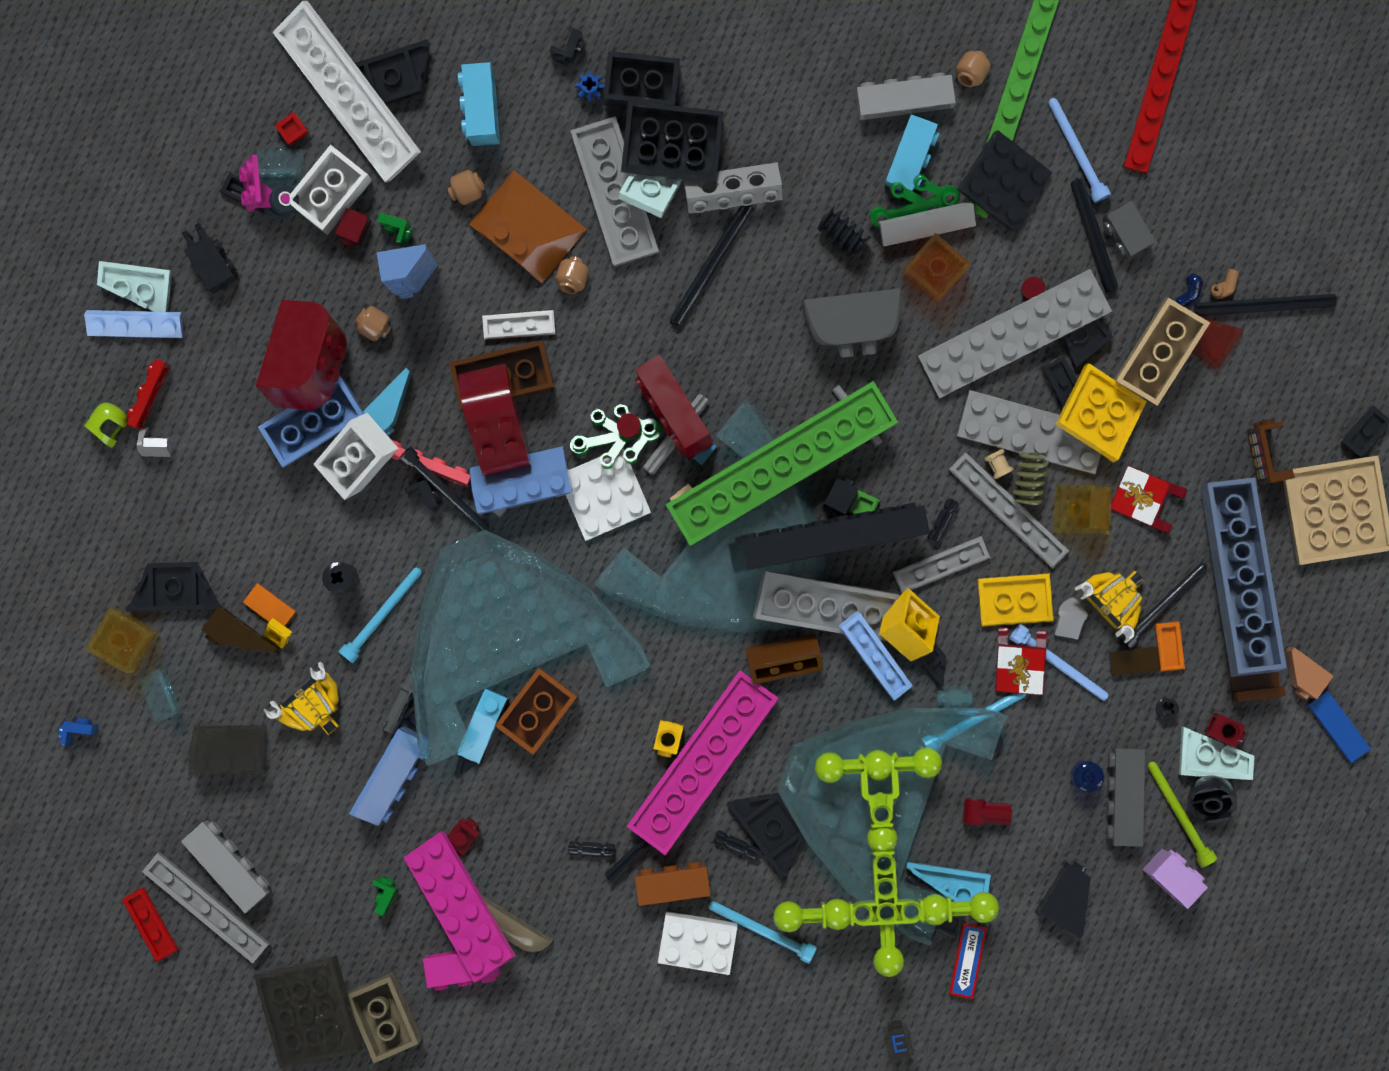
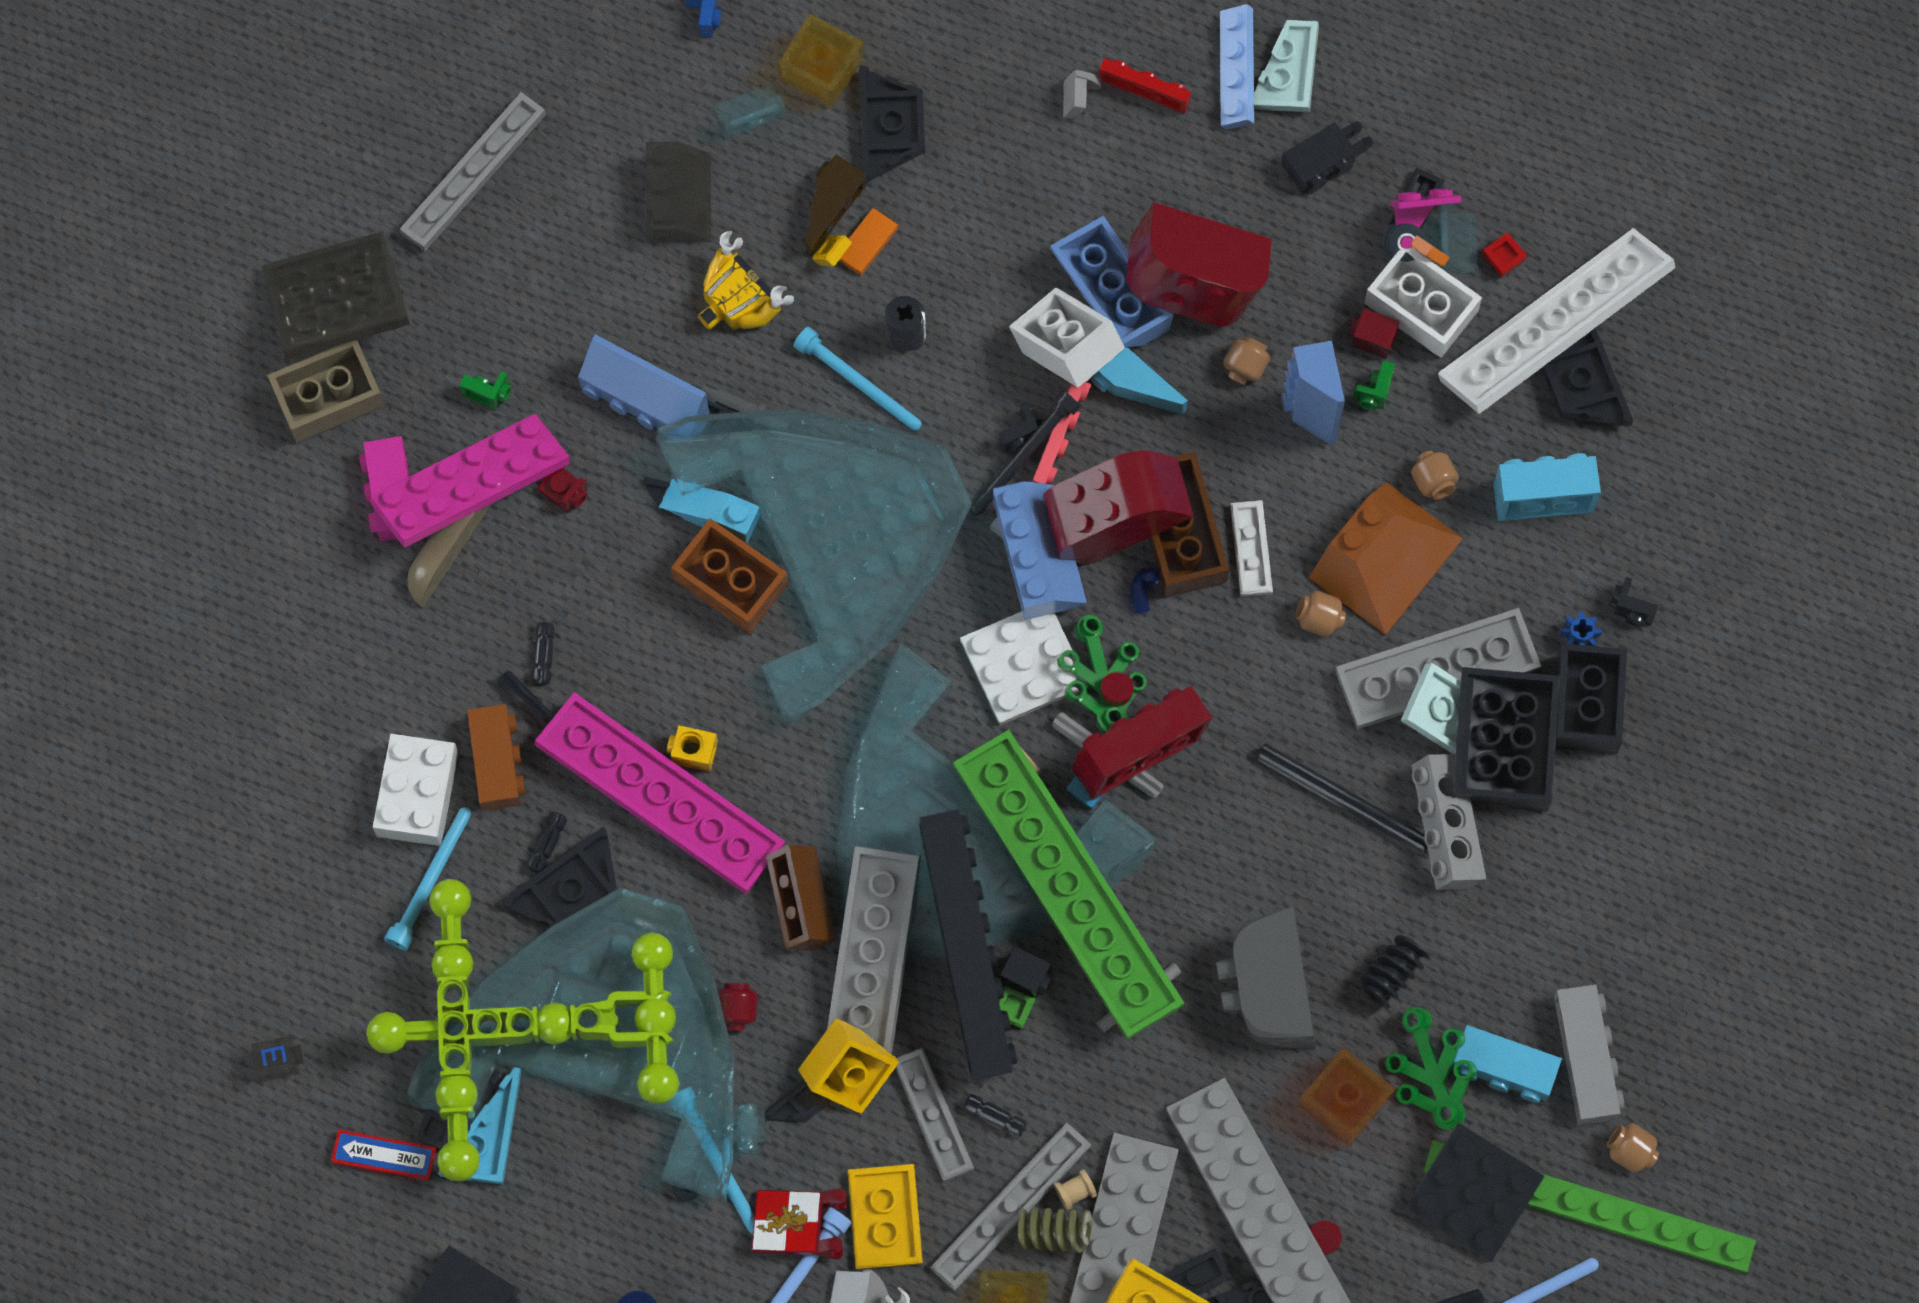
camera: 85 degrees right, 15 degrees down
(101, 413) = (1118, 30): lime helmet -> none
(150, 924) = (452, 105): red tile -> none
(226, 865) = (527, 194): light grey brick -> none
(292, 182) = (1429, 251): none -> orange tile
(548, 407) = (1140, 586): none -> clear blue arm
(861, 705) = (738, 1005): none -> dark red head
(875, 655) = (805, 1018): light blue plate -> none
(927, 223) = (1410, 1084): light grey tile -> none
(981, 812) = (588, 1172): dark red piece -> none

